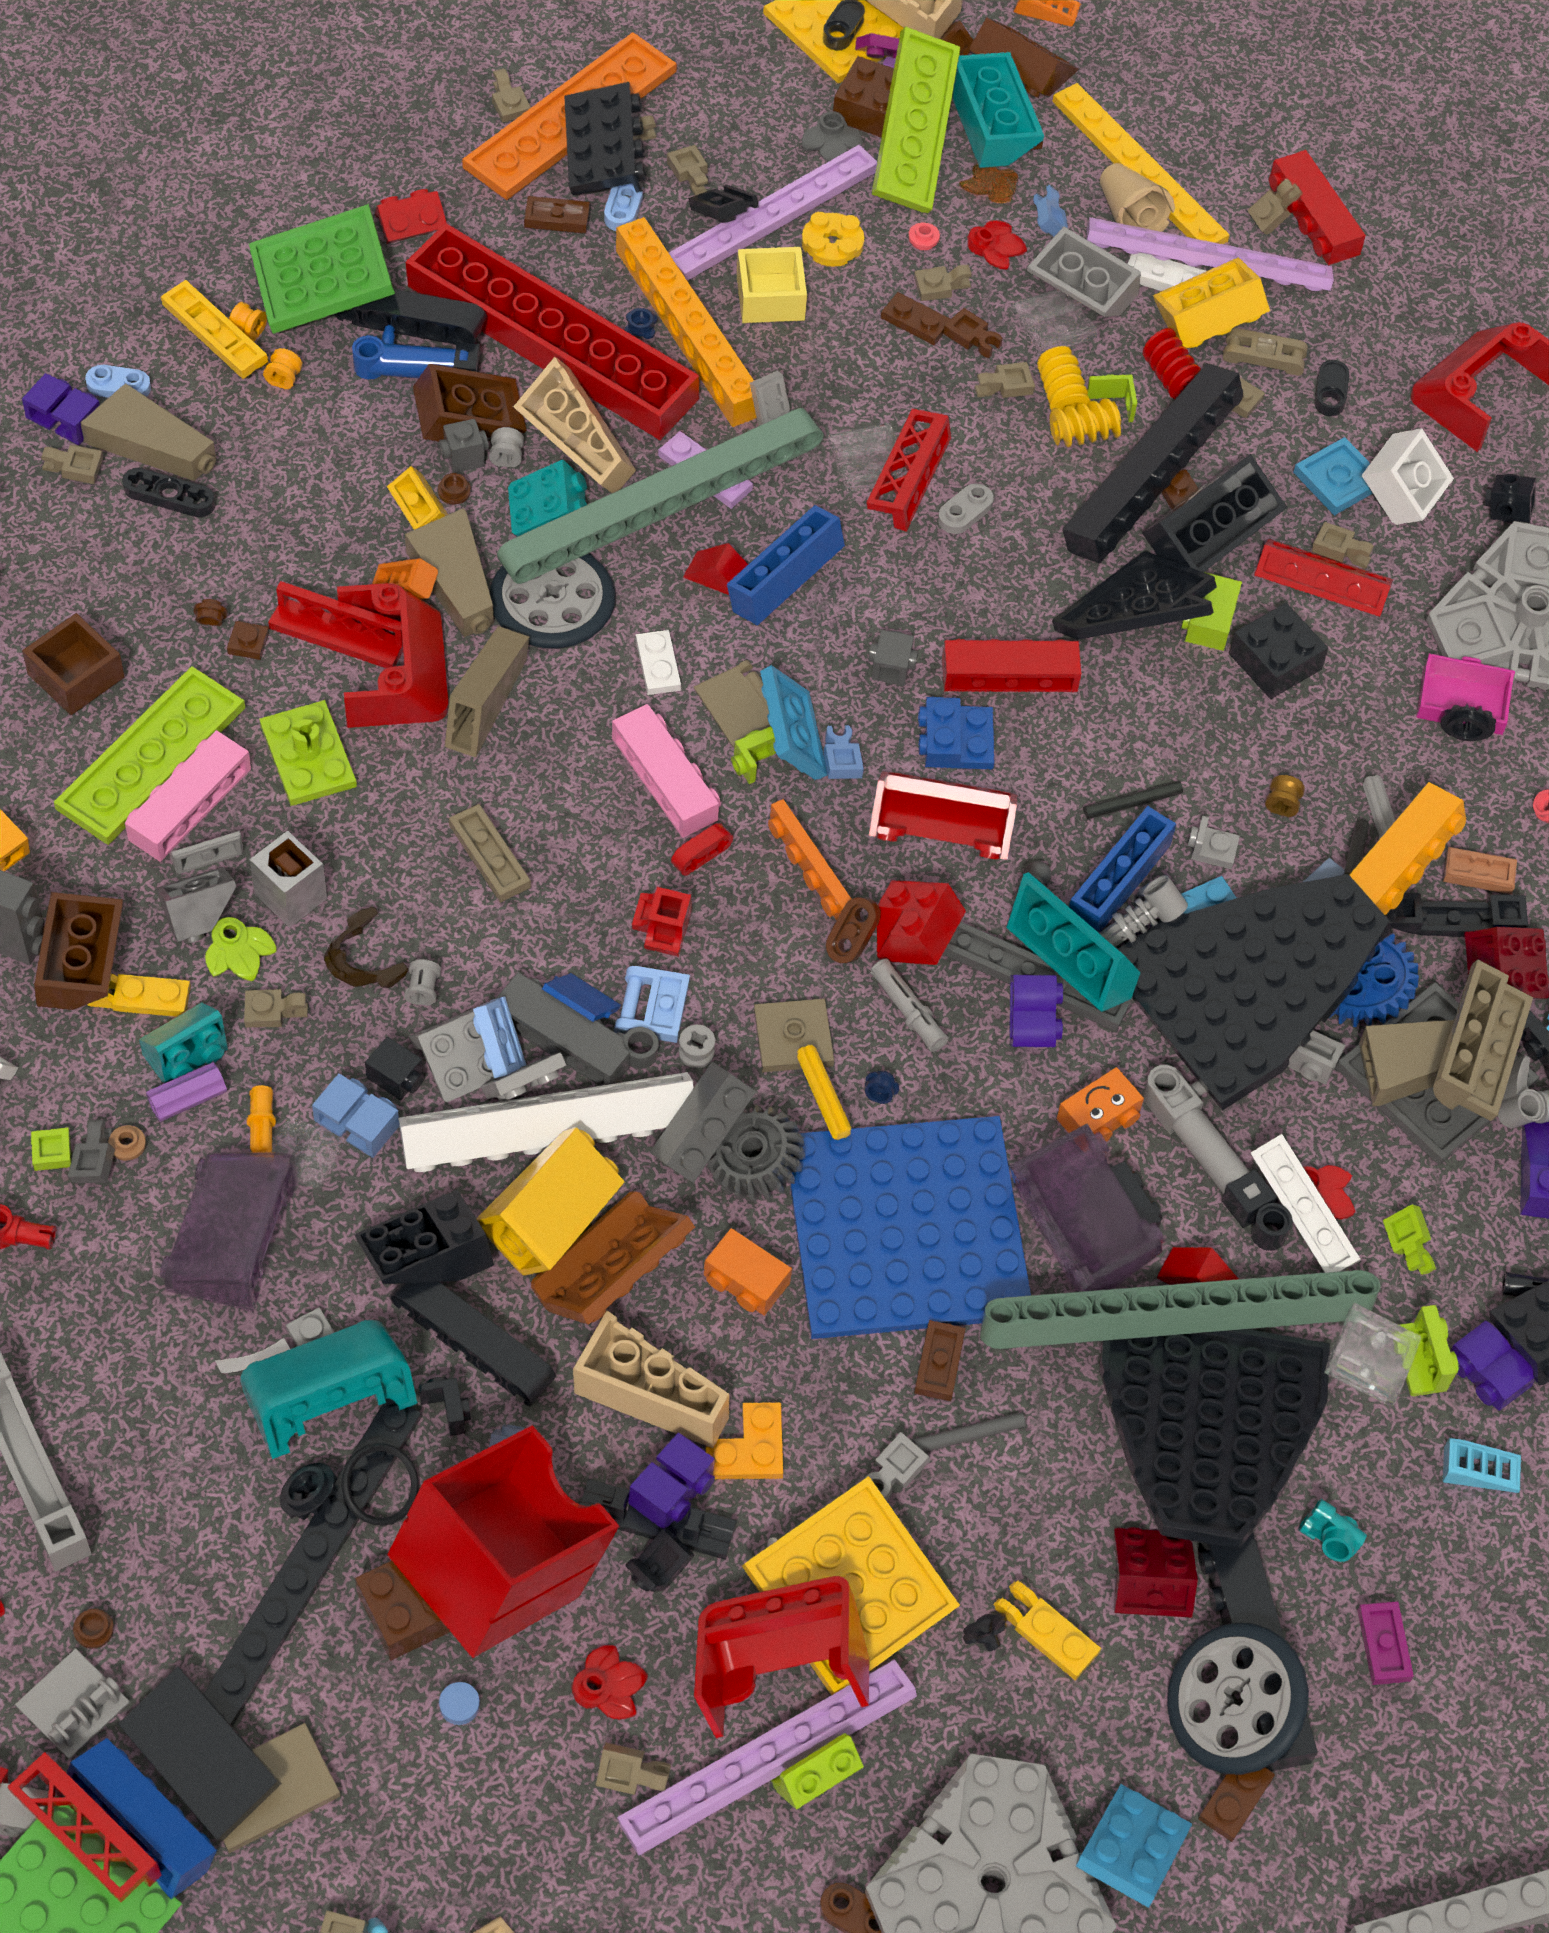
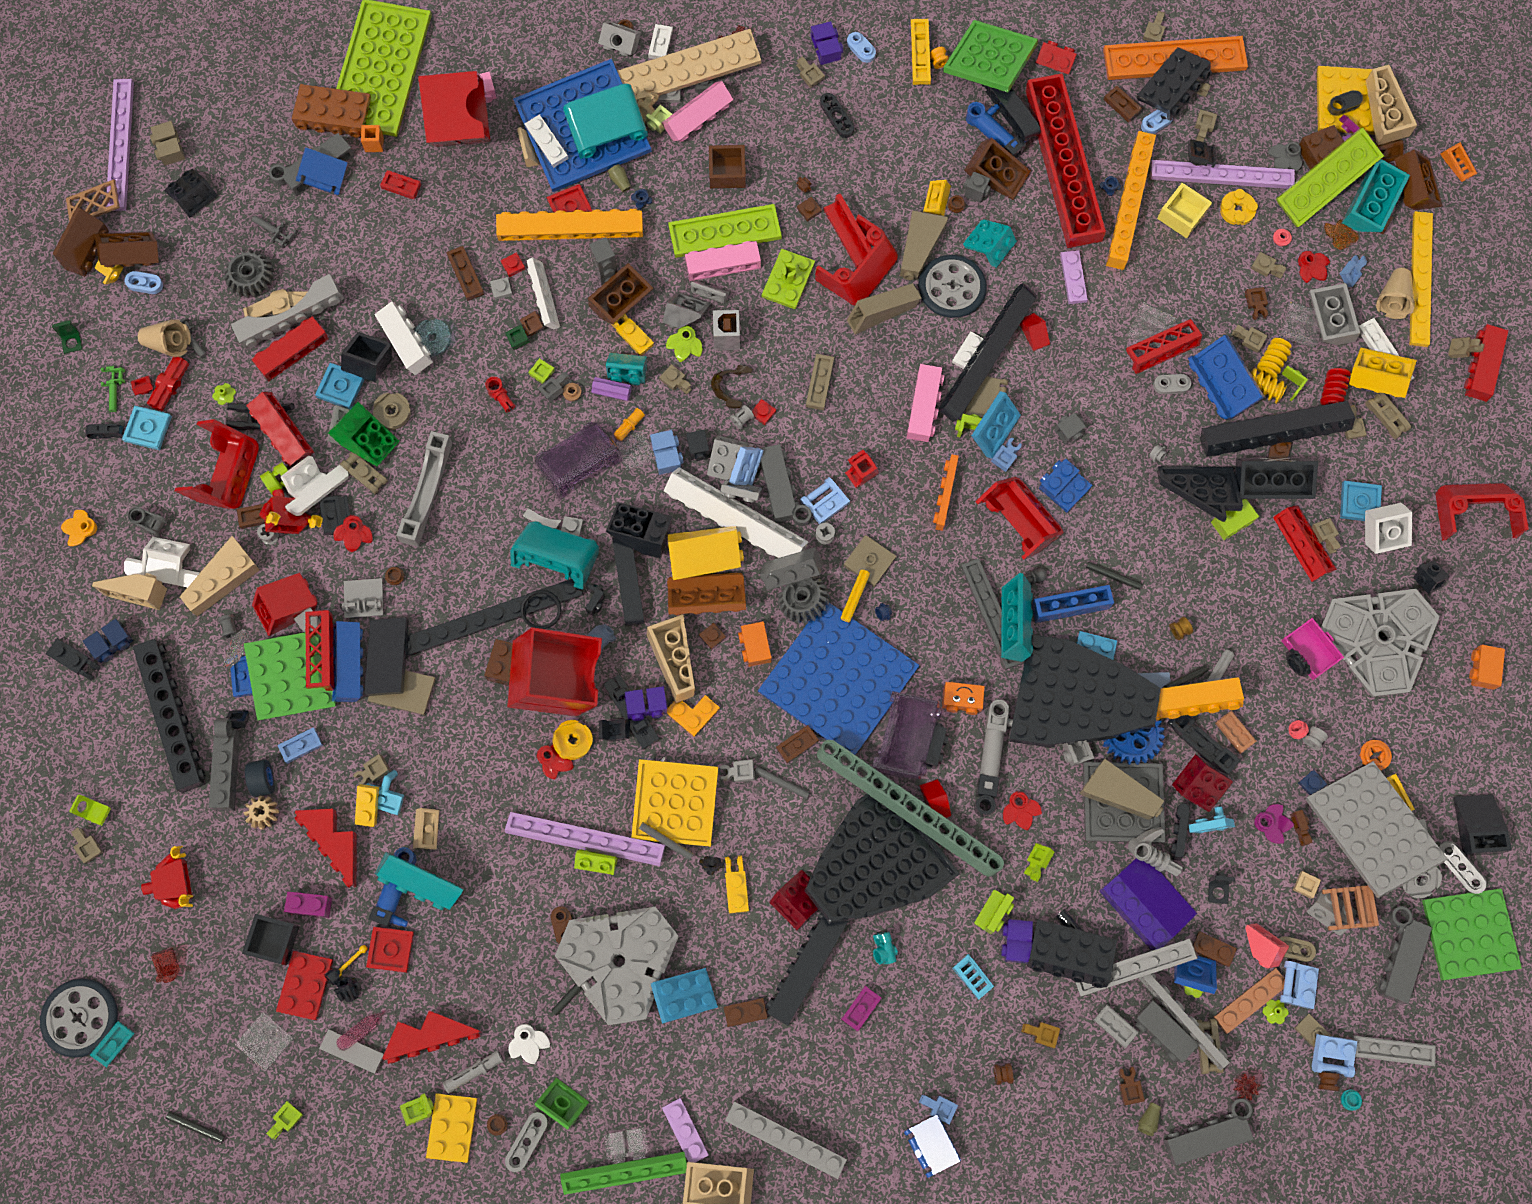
camera: 45 degrees right, 15 degrees up
(148, 434) = (849, 79): dark tan slope -> none
(282, 368) = (934, 92): light orange wheel -> none
(301, 1483) = (515, 584): black gear -> none
(412, 575) = (894, 231): orange slope -> none
(446, 953) = (763, 412): none -> red plate
(459, 1703) = (495, 718): medium blue tile -> none
(506, 447) = (995, 201): light grey wheel -> none
(570, 420) = (1031, 214): tan wedge -> none
(581, 997) = (797, 475): blue piece -> none
(604, 1648) = (577, 730): none -> yellow plate
(624, 1769) = (530, 799): dark tan plate -> none
(659, 496) = (1039, 275): sand green beam -> none
(672, 1315) = (712, 636): none -> reddish brown plate
(688, 643) = (987, 352): none -> black beam
(701, 849) = (907, 450): red beam -> none
(769, 397) = (1126, 270): light grey plate -> none
(776, 1633) = (627, 794): red windscreen -> none
(785, 565) = (1063, 349): blue brick -> none
(852, 927) = (934, 535): reddish brown plate -> none
(908, 1649) = (666, 841): none -> dark grey bar
(915, 318) = (1238, 275): reddish brown plate -> none
(917, 921) = (962, 555): red slope -> none
(917, 1016) = (928, 588): light grey pin -> none
(1011, 666) = (1118, 472): red brick -> none
(1030, 446) = (1225, 378): none -> blue bracket
(1034, 1011) = (974, 633): dark purple brick -> none
(1036, 604) = (1158, 453): none -> light grey plate
(1161, 901) = (1073, 630): light grey piece -> none
(1201, 252) = (1407, 347): lavender plate -> none
(1213, 845) = (1128, 624): light grey bracket -> none
(1278, 650) = (1245, 560): black piece -> none
(1286, 1706) = (788, 998): wedge -> none
(1306, 1205) = (1005, 810): white plate -> none
(1332, 383) = (1404, 455): black piece -> none
(1373, 1354) = (971, 894): clear slope -> none
(1482, 1042) = (1144, 808): dark tan brick -> none

